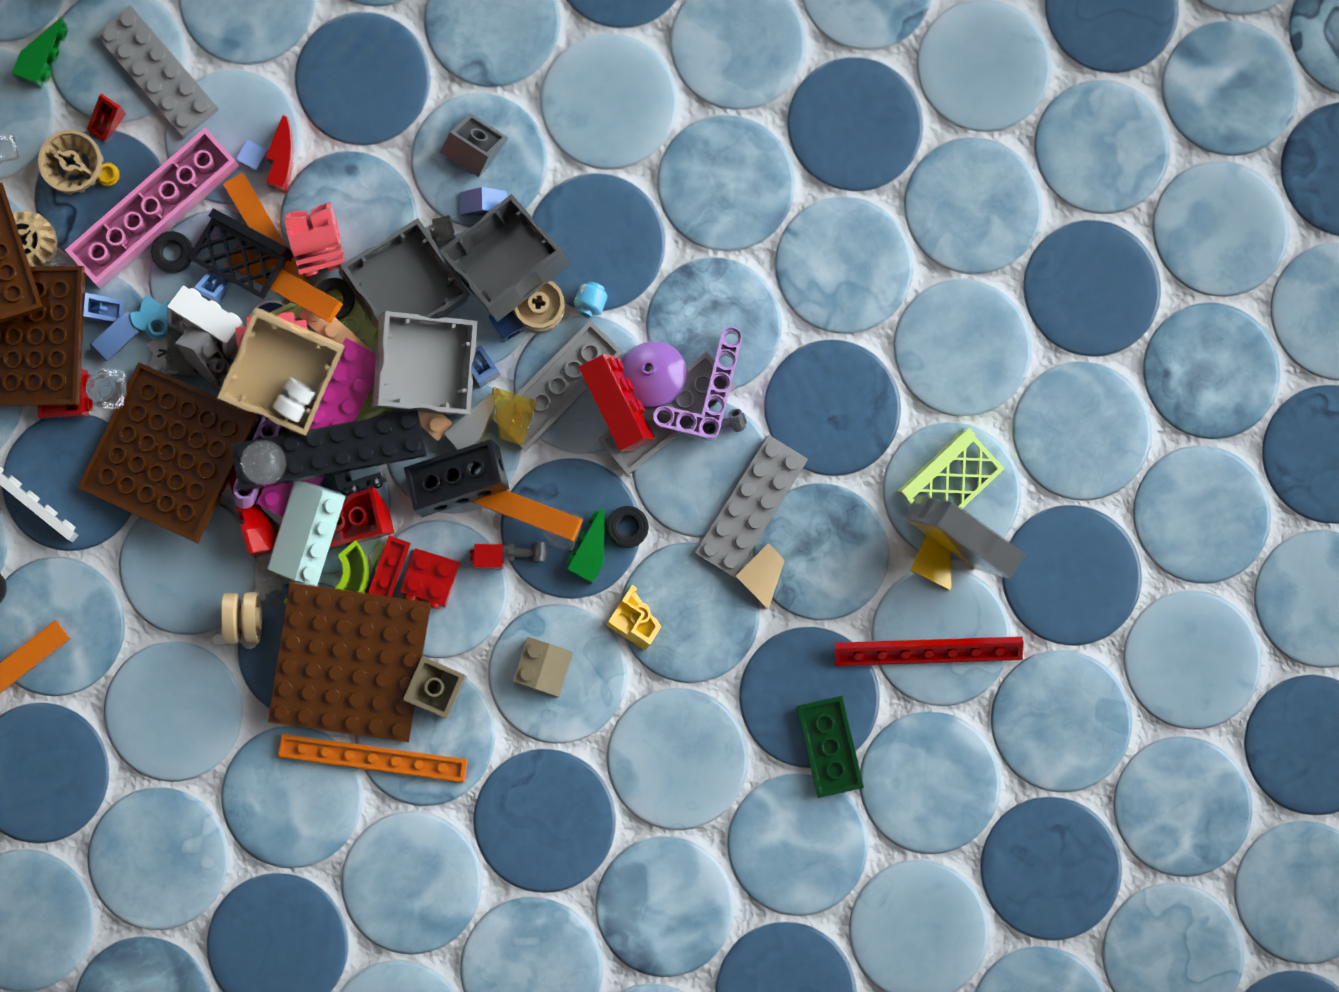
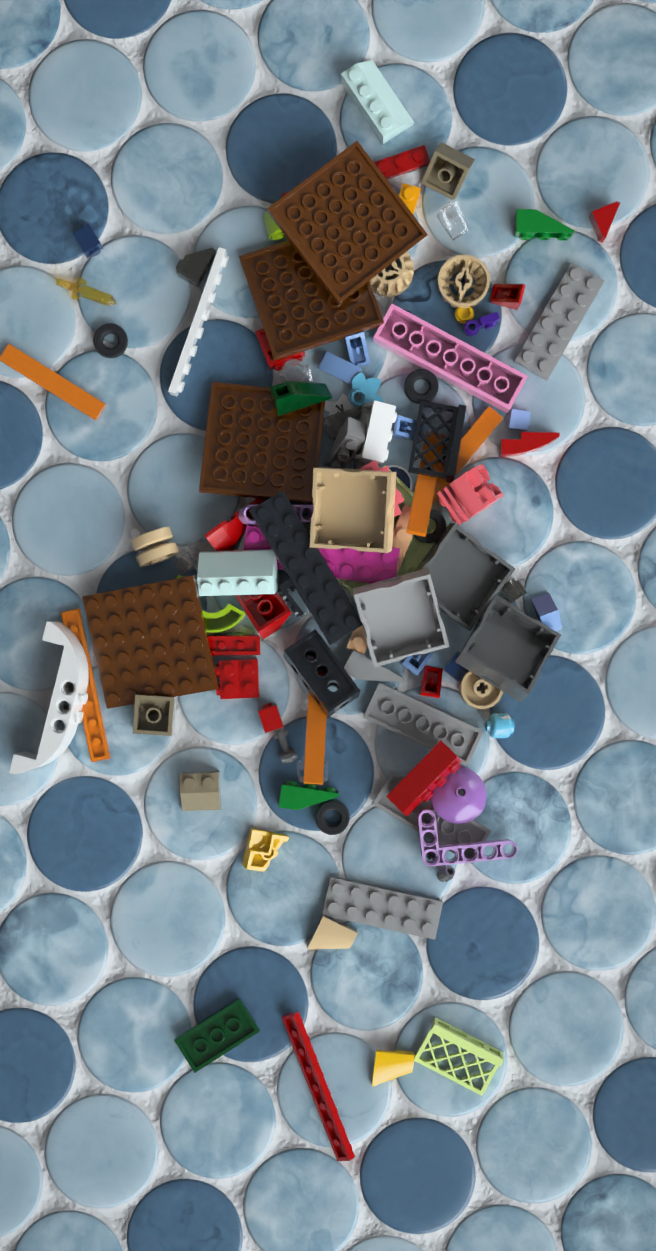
camera: 75 degrees right, 5 degrees up
(127, 150) = (487, 322): none -> dark purple plate
(128, 396) = (297, 395): none -> dark green slope
(263, 462) = (276, 522): clear wheel -> none
(294, 399) = (334, 527): white wheel -> none
(349, 763) = (74, 671): none -> white slope
(473, 144) = (589, 590): dark grey slope -> none
(513, 360) = (431, 682): none -> red slope
(513, 415) = (386, 699): clear yellow wing -> none
(964, 536) = (414, 1092): dark grey tile -> none

